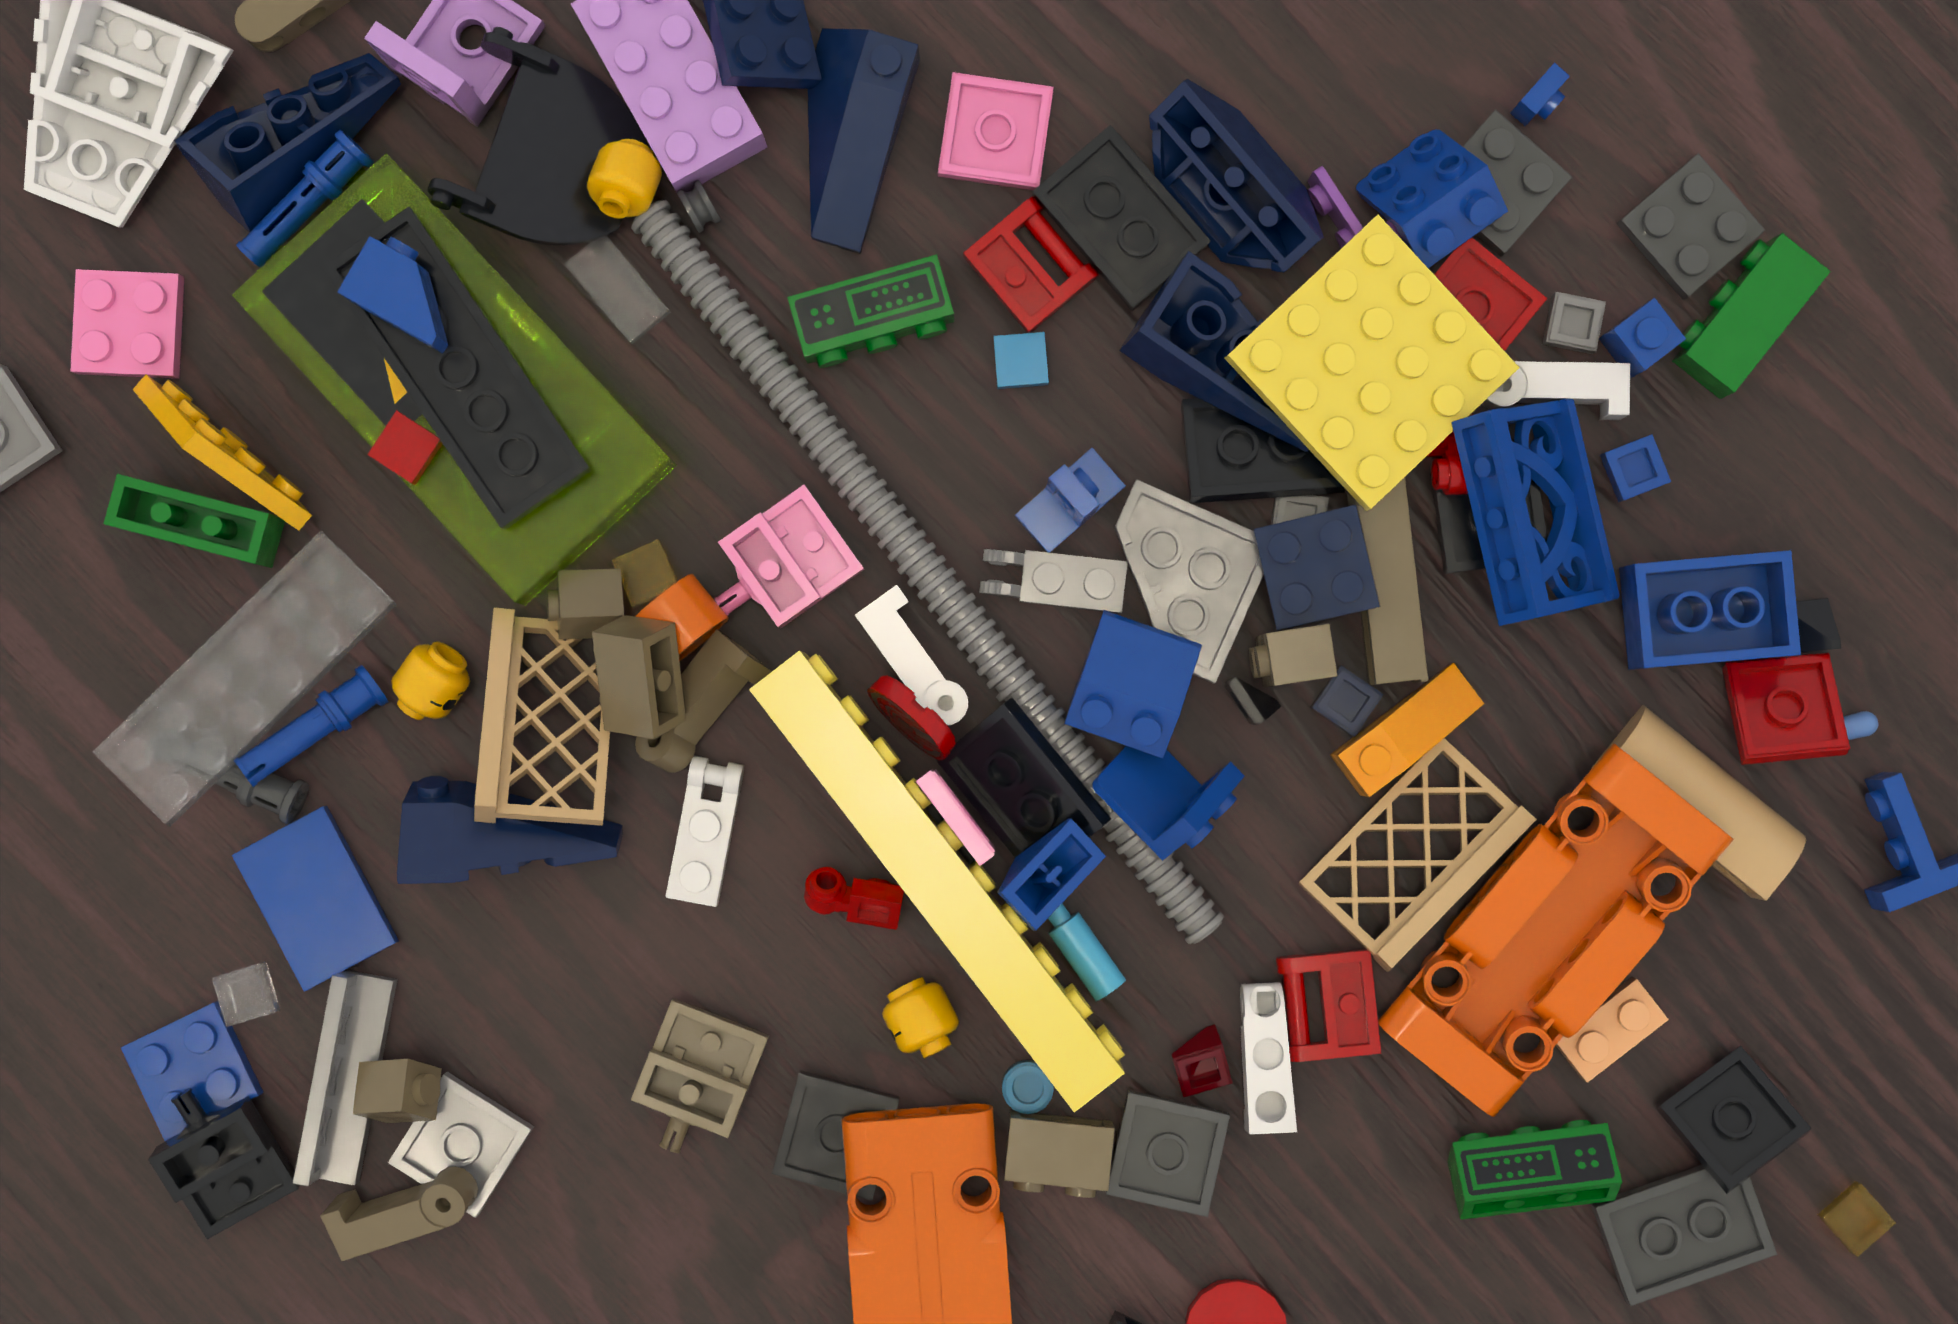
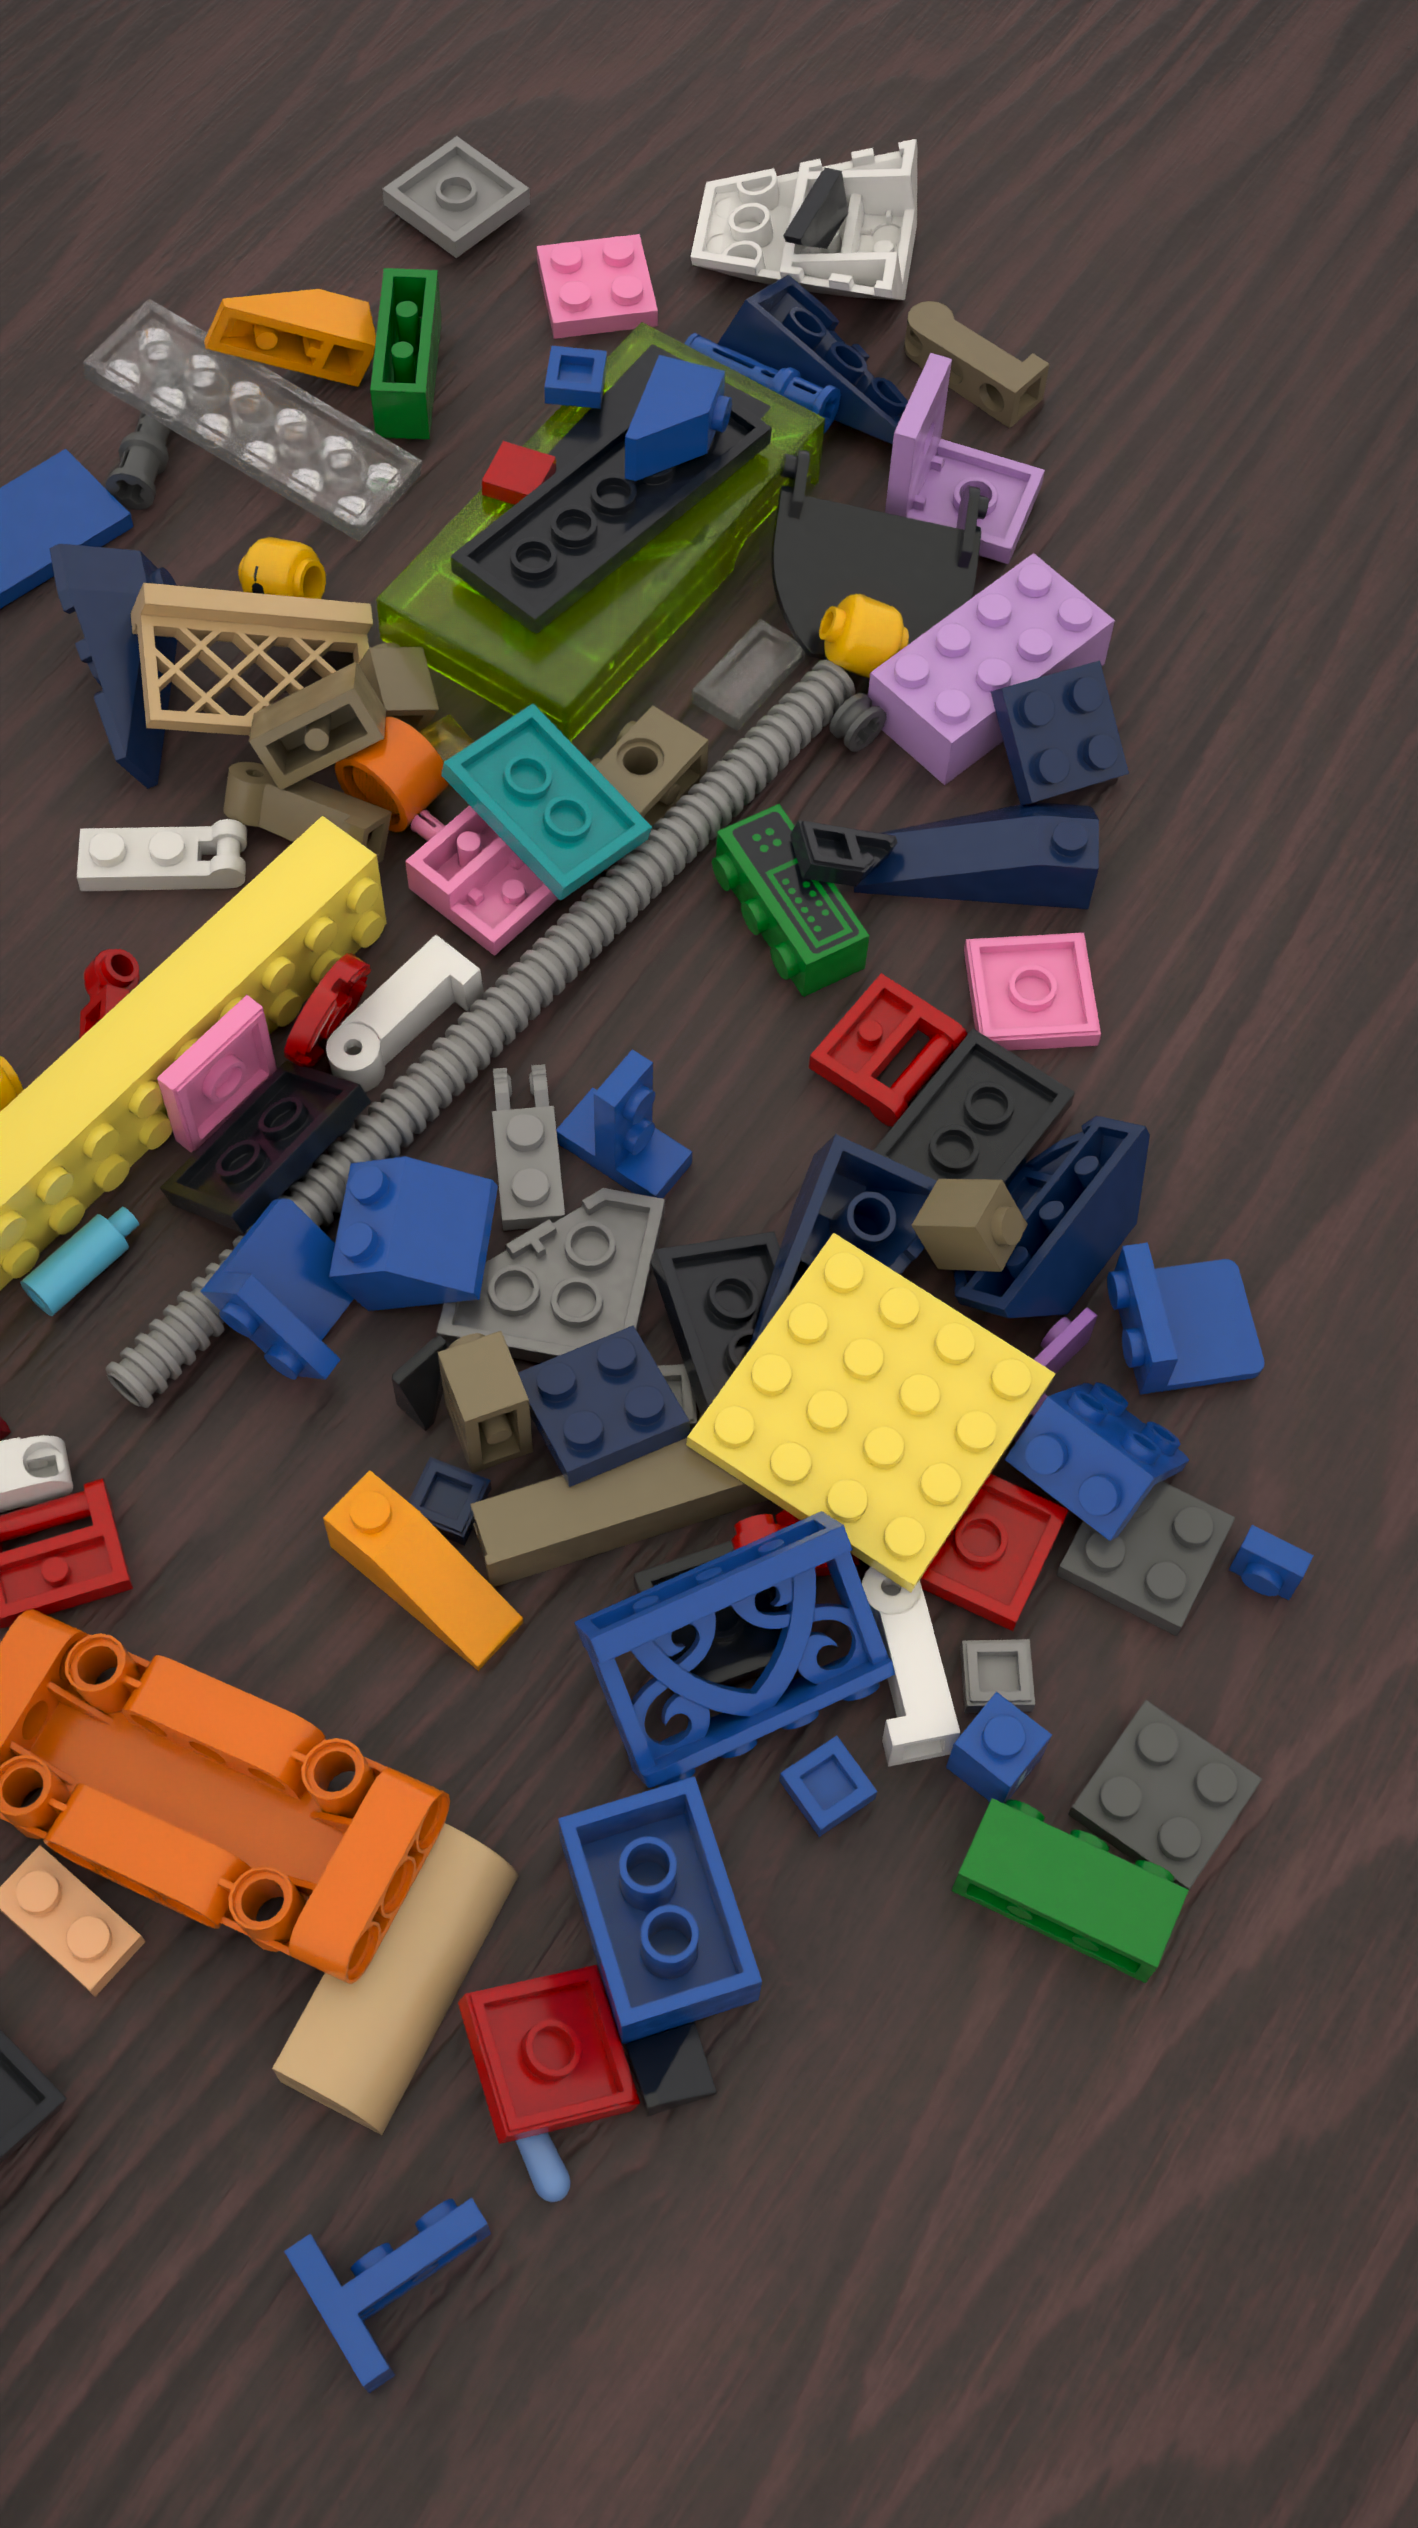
camera: 75 degrees right, 25 degrees down
(114, 94) = (820, 212): none -> black tile
(158, 603) = (299, 332): none -> light orange slope
(221, 450) = (483, 349): yellow plate -> none
(303, 371) = (575, 377): none -> blue plate
(332, 712) = (230, 496): blue pin -> none
(706, 376) = (655, 763): none -> dark tan brick
(753, 495) = (546, 801): none -> teal plate
(850, 258) = (838, 852): none -> black tile
(1021, 360) = (775, 1065): dark azure tile -> none
(1049, 872) = (160, 1169): blue slope -> none
(1234, 244) = (969, 1224): none -> dark tan brick
(1328, 97) = (1183, 1322): none -> blue bracket
(1449, 885) = (216, 1650): tan fence -> none

